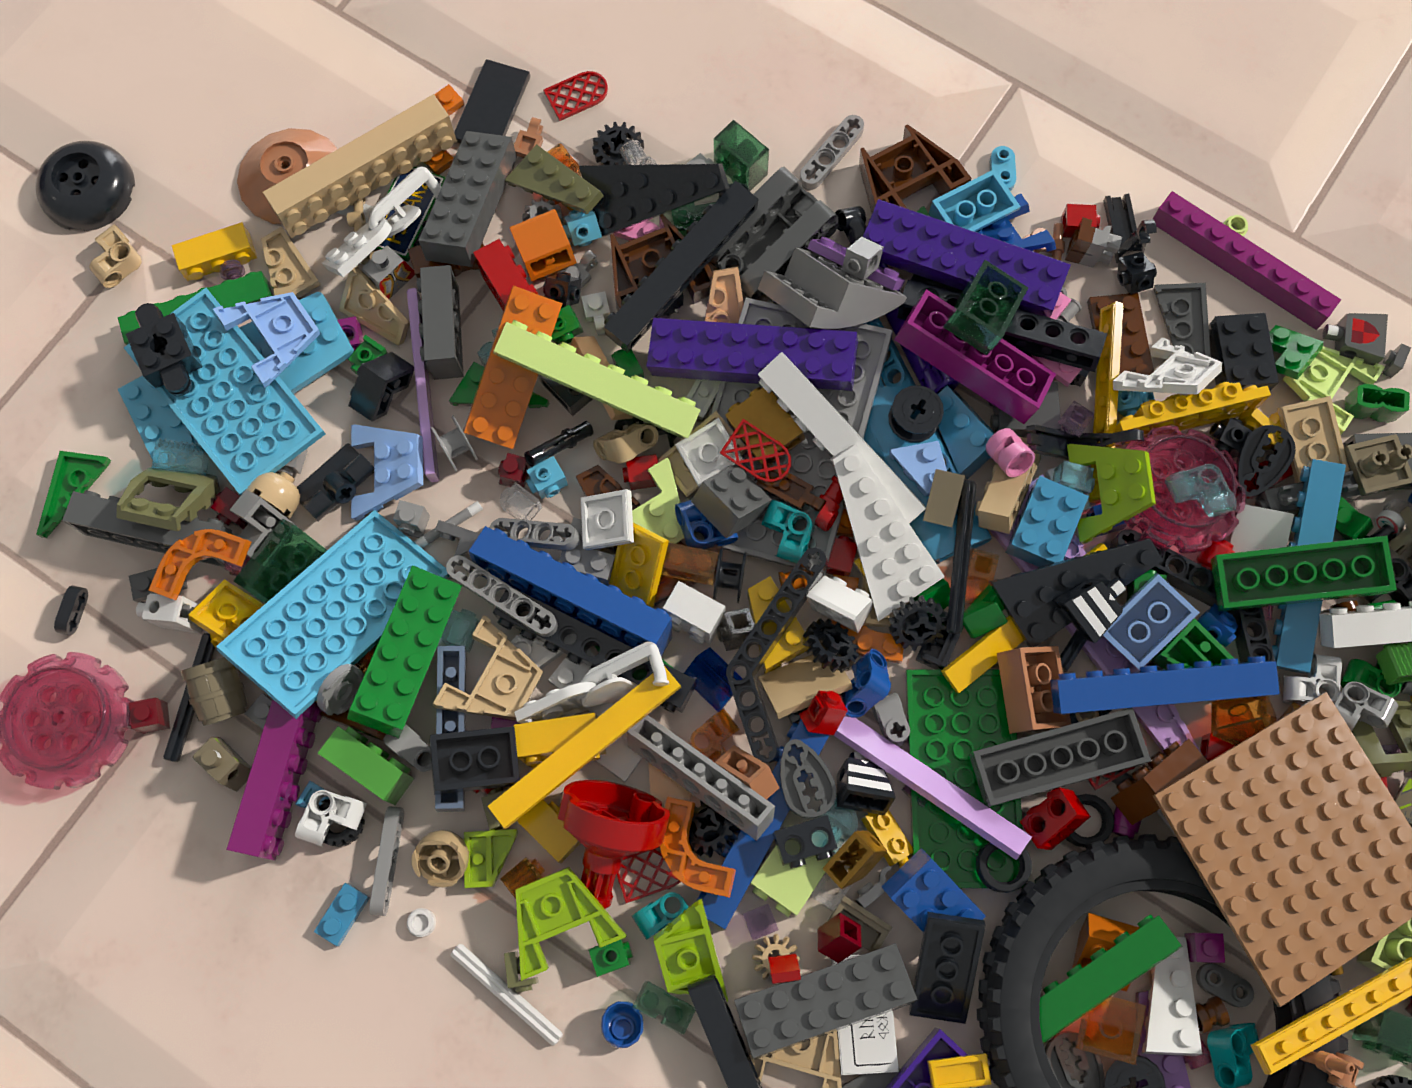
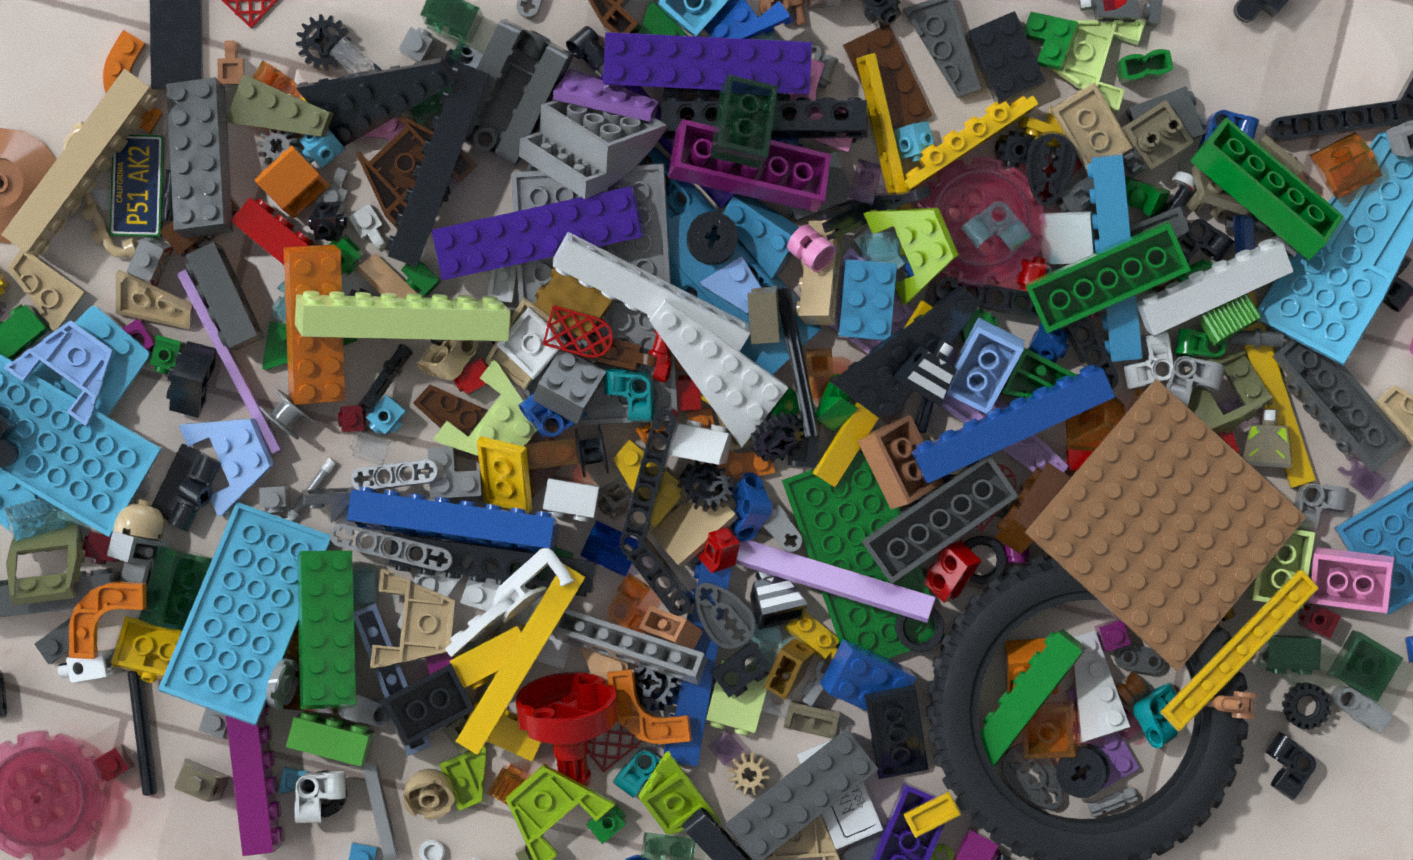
camera: 20 degrees left, 15 degrees up
(215, 691) = (165, 722): dark tan piece -> none
(371, 235) = (131, 209): white plate -> none
(607, 520) = (461, 444): white tile -> none
(725, 297) = (491, 183): light nougat wing -> none
(784, 968) = (758, 782): red tile -> none
(839, 938) = (797, 738): dark red brick -> none
(862, 258) = (611, 104): light grey brick -> none
(1178, 374) = (949, 112): white wing -> none

